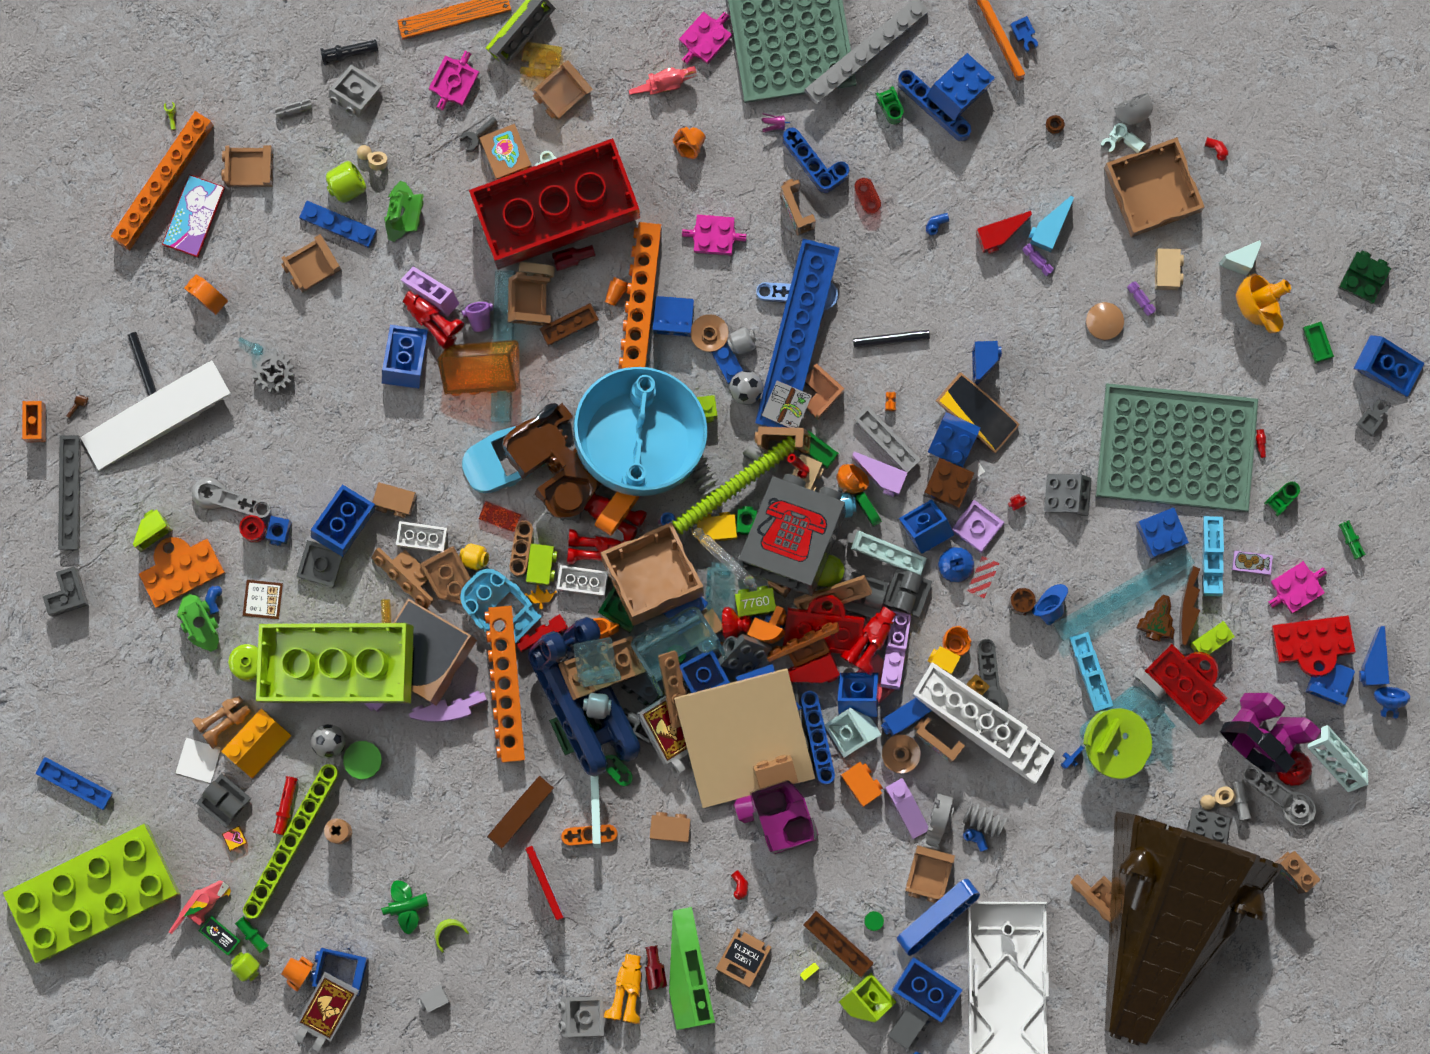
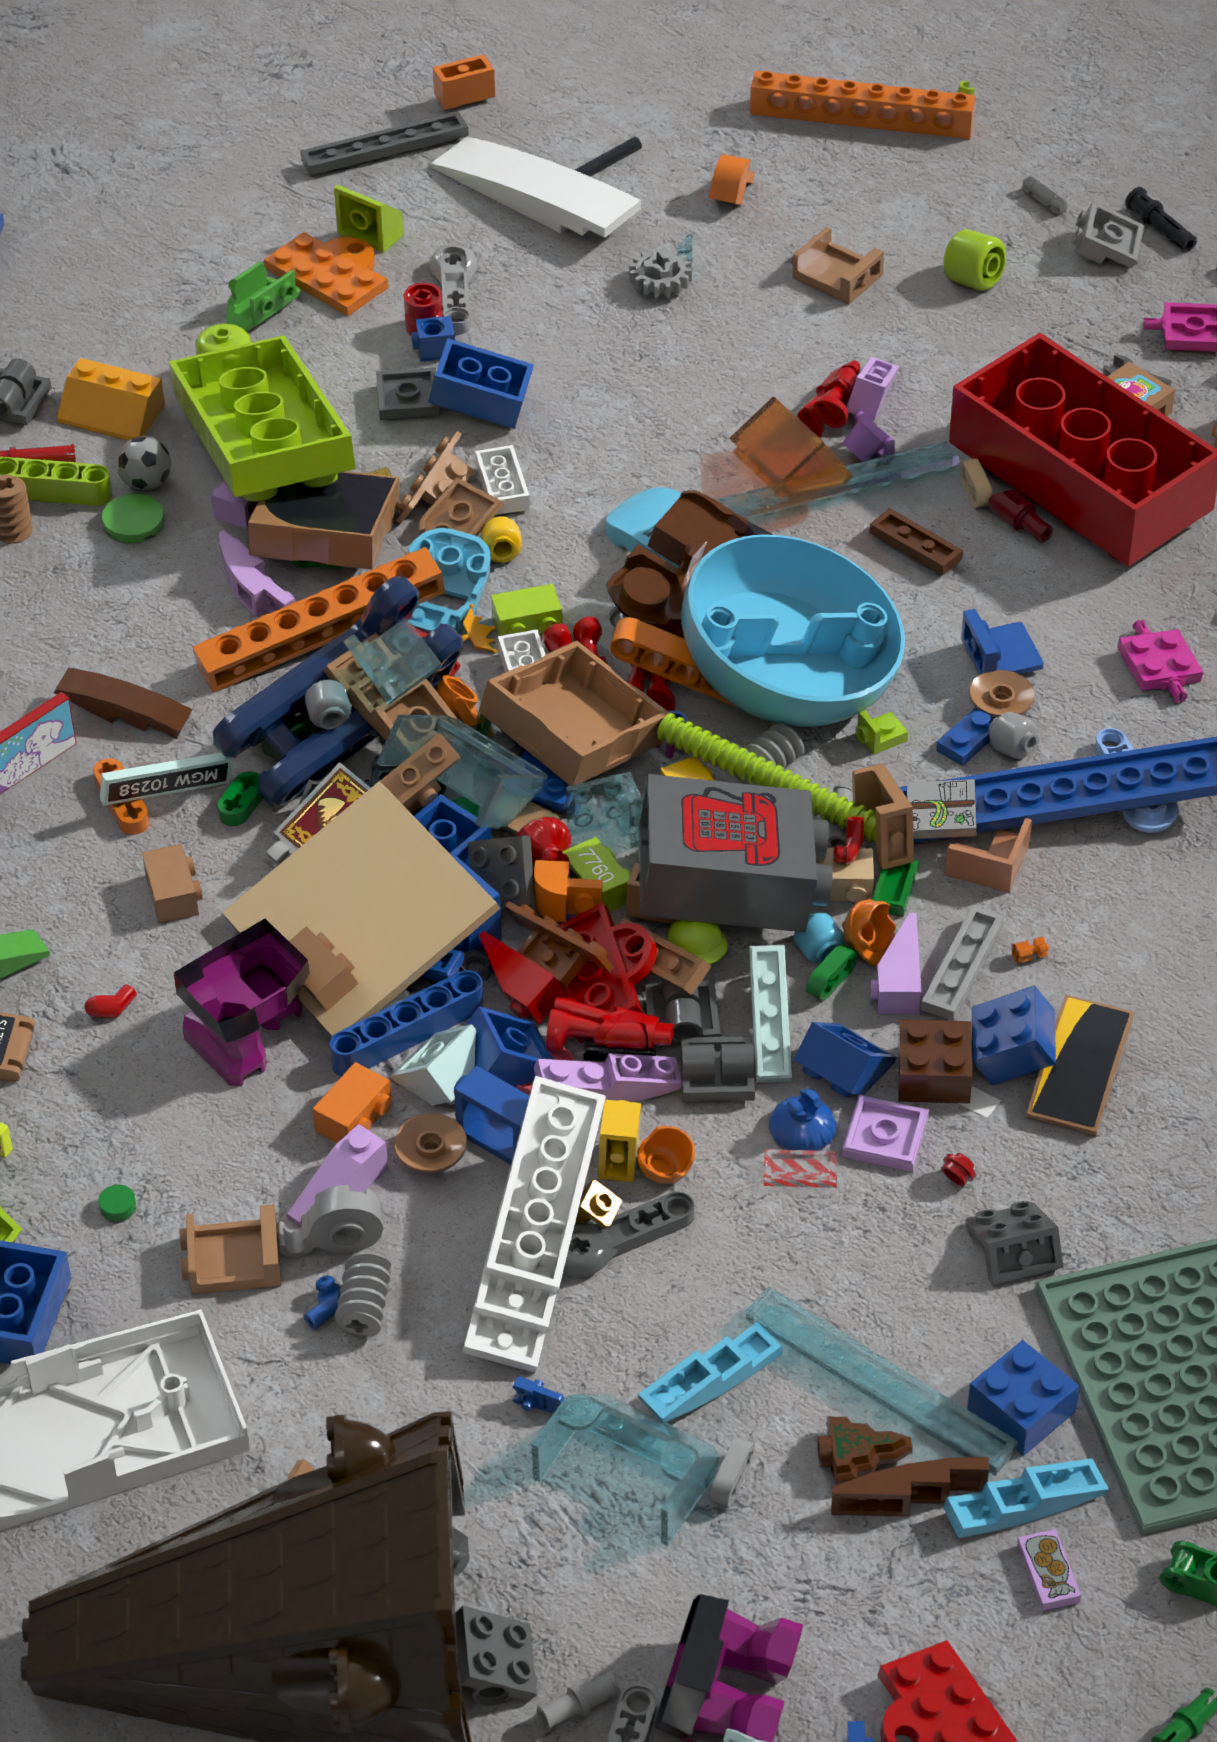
camera: 70 degrees right, 35 degrees down
(71, 595) = (243, 177): dark grey panel -> none
(79, 400) = (516, 122): reddish brown hand -> none
(193, 216) = (833, 150): tile -> none
(198, 760) = (58, 361): white sticker -> none
(211, 597) = (301, 307): blue arm -> none
(232, 718) = (107, 349): medium nougat piece -> none
(248, 167) = (934, 175): medium nougat panel -> none
(262, 599) = (329, 359): sticker -> none
(338, 224) = (911, 280): blue plate -> none
(376, 160) = (1027, 282): tan plate -> none
(394, 500) = (542, 436): medium nougat brick -> none
(400, 198) = (946, 330): bright green piece -> none
(404, 356) = (747, 382): blue slope -> none
(499, 516) = (578, 556): clear red tile -> none
(518, 540) = (566, 576): medium nougat beam -> none
(527, 299) = (925, 480): medium nougat panel -> none
(615, 291) = (999, 575): orange cone -> none
(653, 233) = (1022, 599): orange brick -> none
(727, 560) = (635, 790): clear wheel -> none
(746, 387) = (941, 753): light grey piece -> none
(838, 944) = (56, 1163): reddish brown plate -> none
(891, 338) = (1135, 920): black piece -> none
(935, 744) = (481, 1151): medium nougat panel -> none
(938, 917) = (156, 1274): beam -> none
(984, 358) = (1172, 1034): blue slope -> none
(1022, 601) = (785, 1227): reddish brown piece -> none
(1050, 605) = (794, 1276): blue piece -> none
(1106, 734) = (596, 1392): lime piece -> none
(1188, 682) = (766, 1526): red plate -> none
(1208, 802) = (568, 1665): tan plate -> none
(1212, 639) = (864, 1542): lime brick -> none
(1297, 587) = (1043, 1661): dark pink plate -> none

